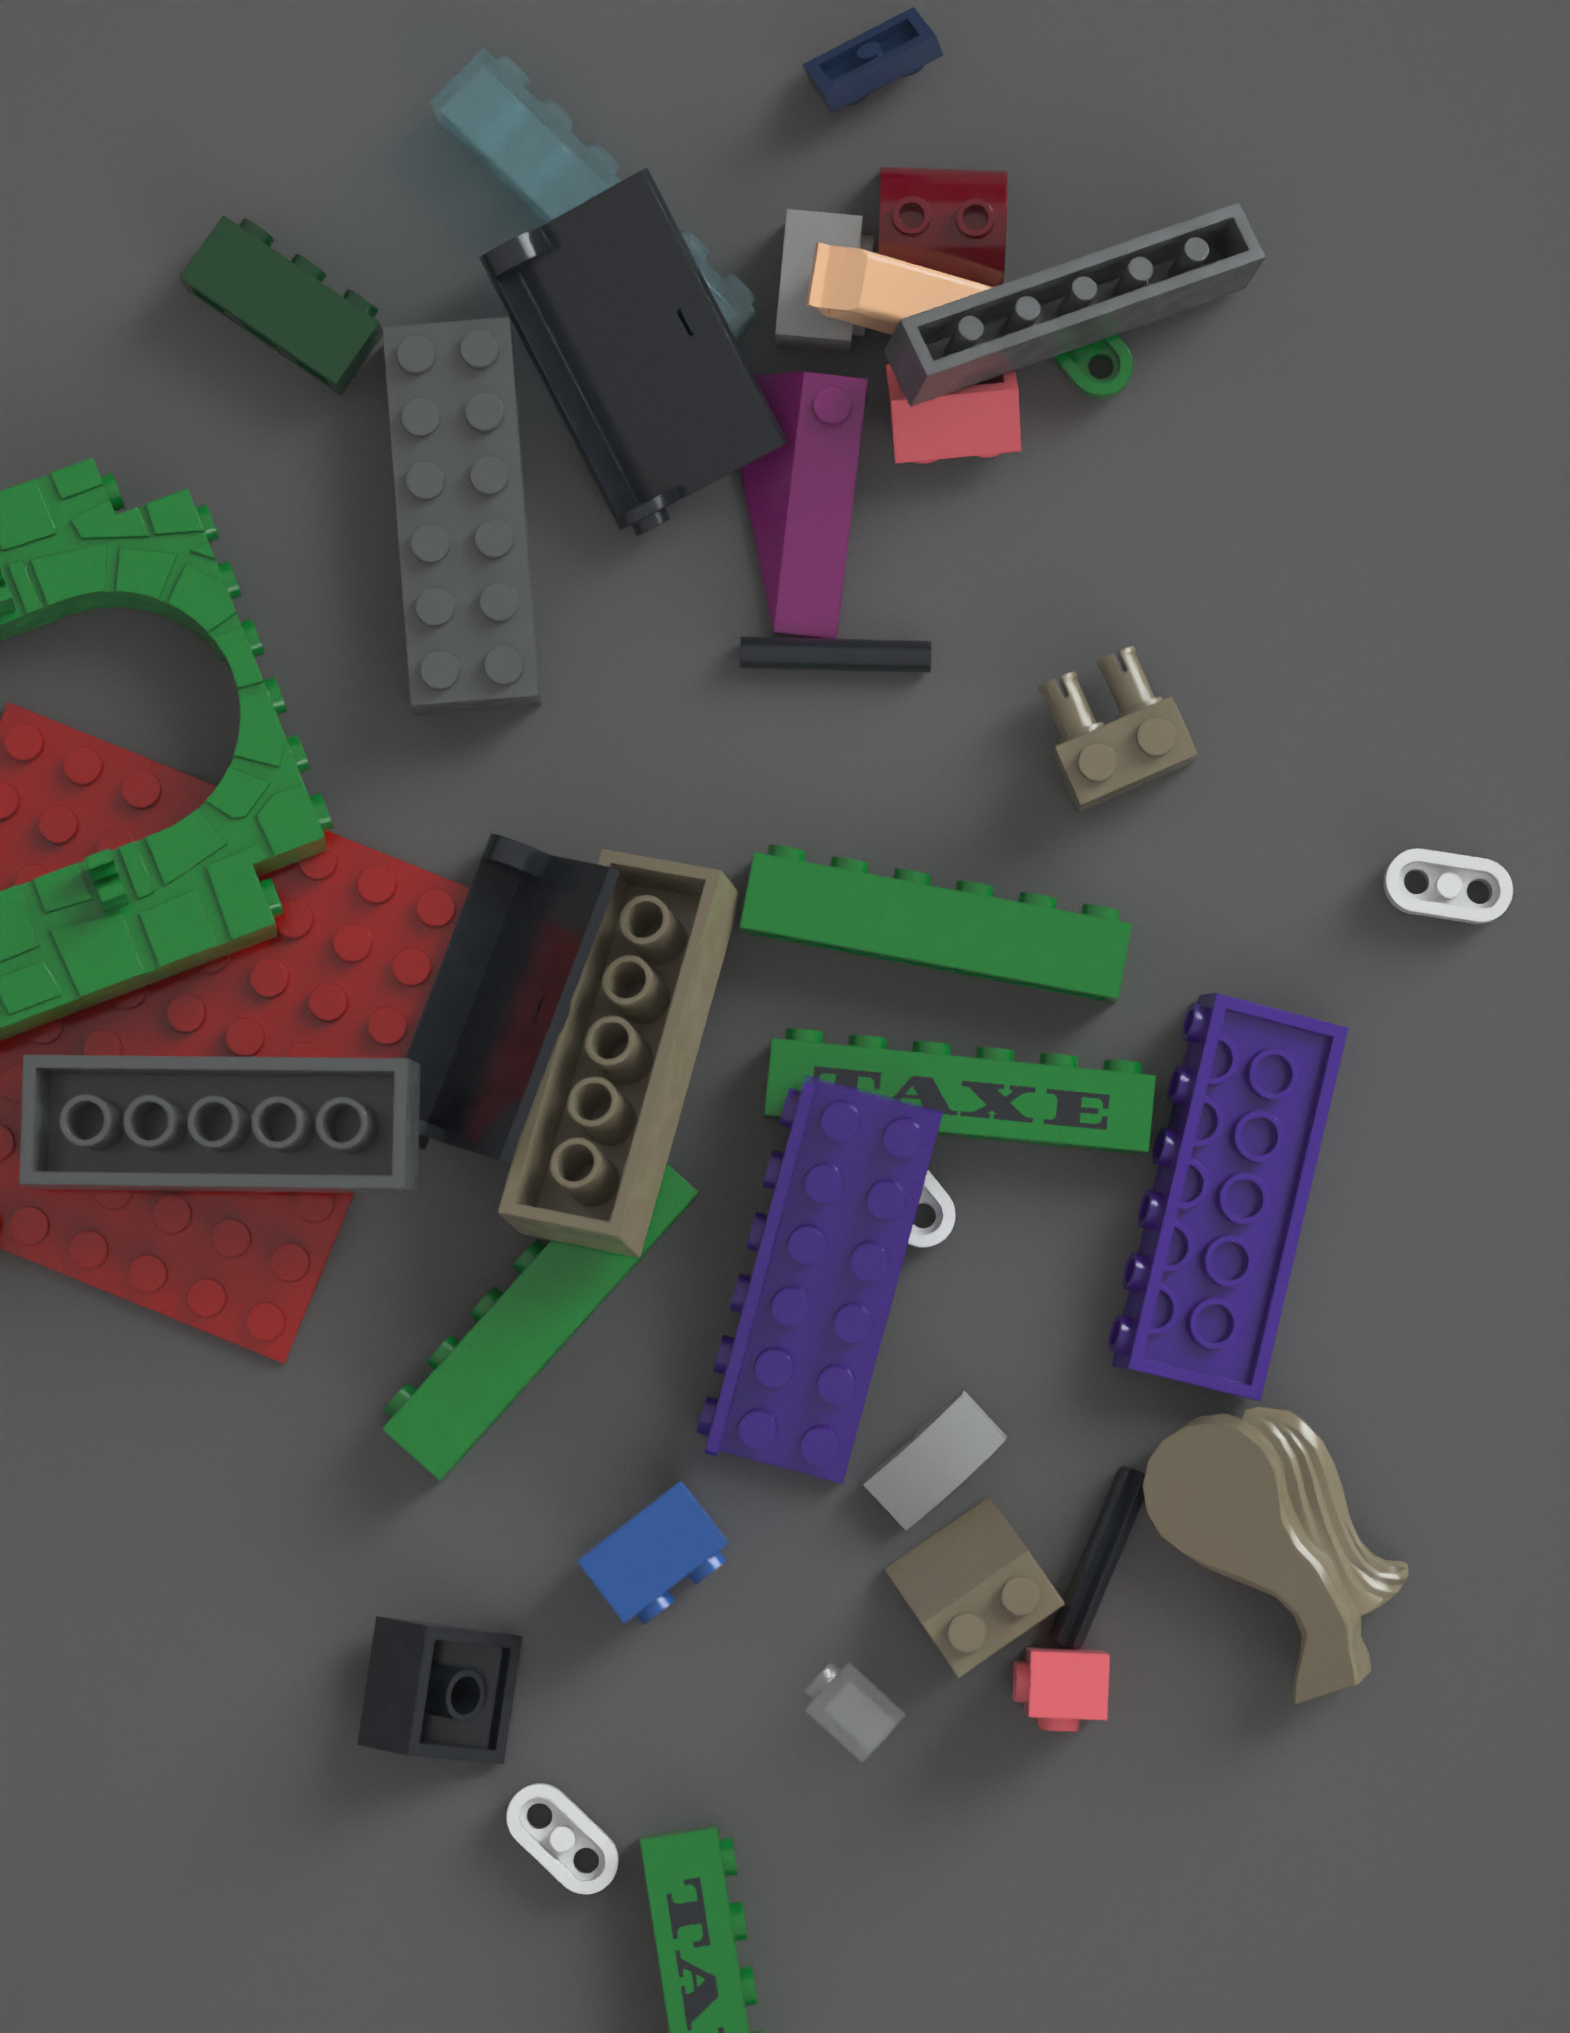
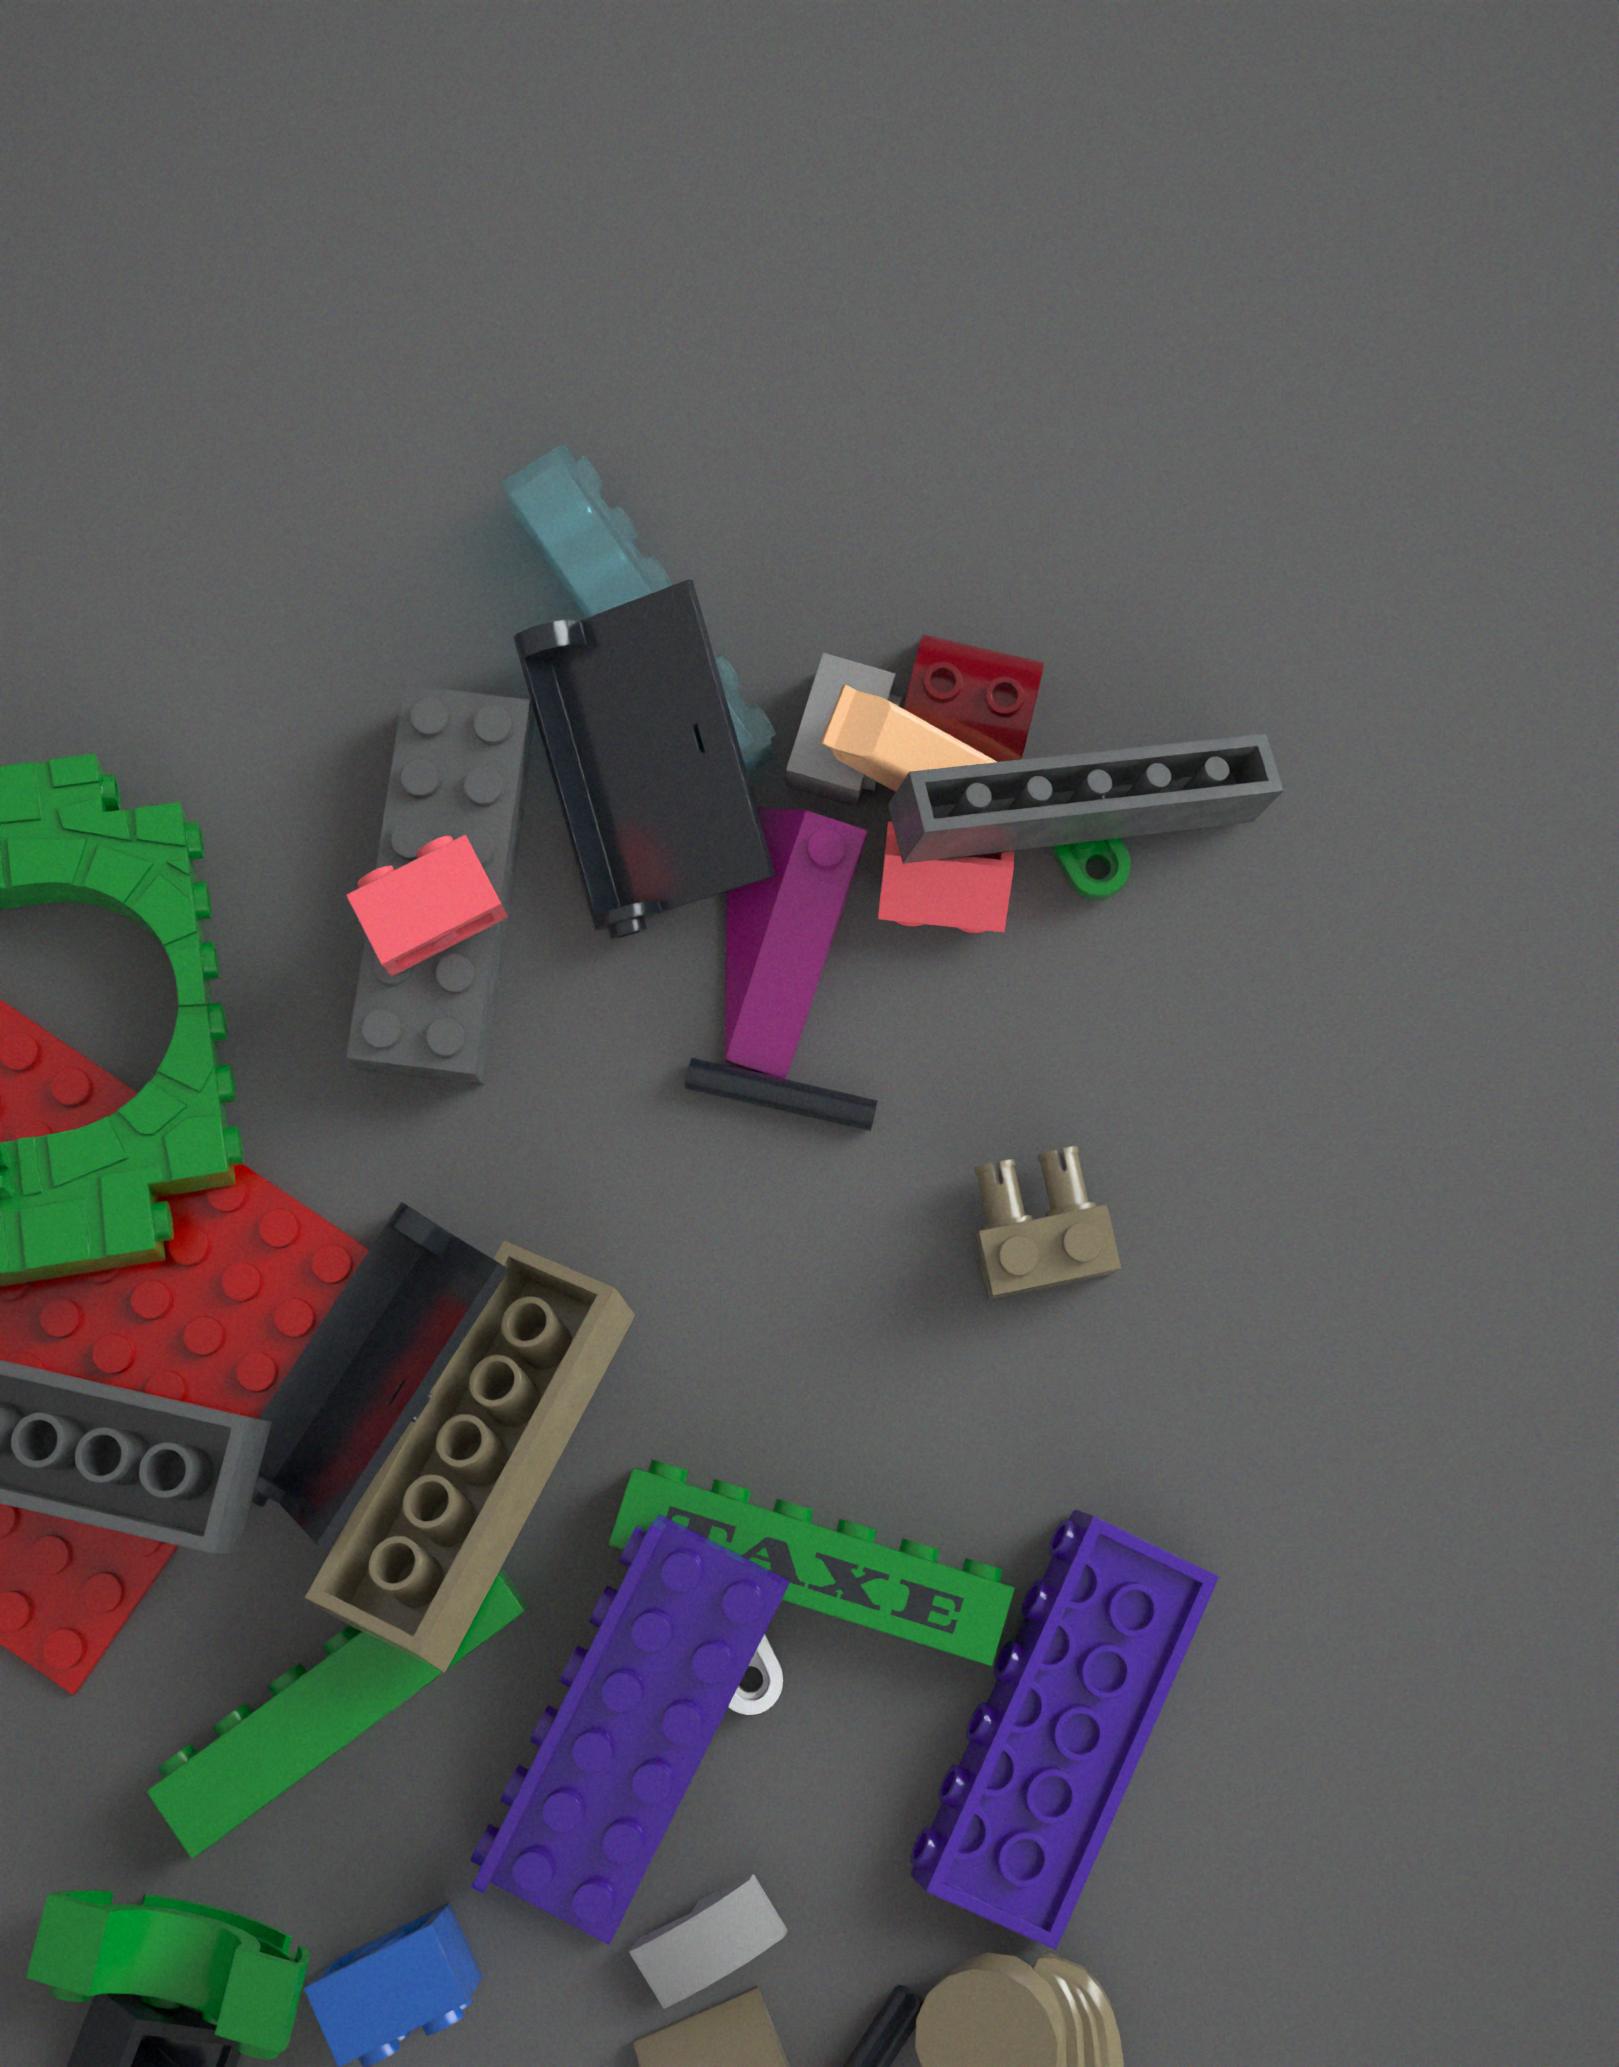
camera: 10 degrees right, 5 degrees down
(283, 302) = (319, 645): dark green brick -> none
(447, 1573) = (172, 1957): none -> green brick
(461, 540) = (426, 903): none -> coral brick
(873, 60) = (936, 532): dark blue plate -> none
(936, 926) = (823, 1386): green brick -> none
(1447, 884) = (1344, 1451): white plate -> none

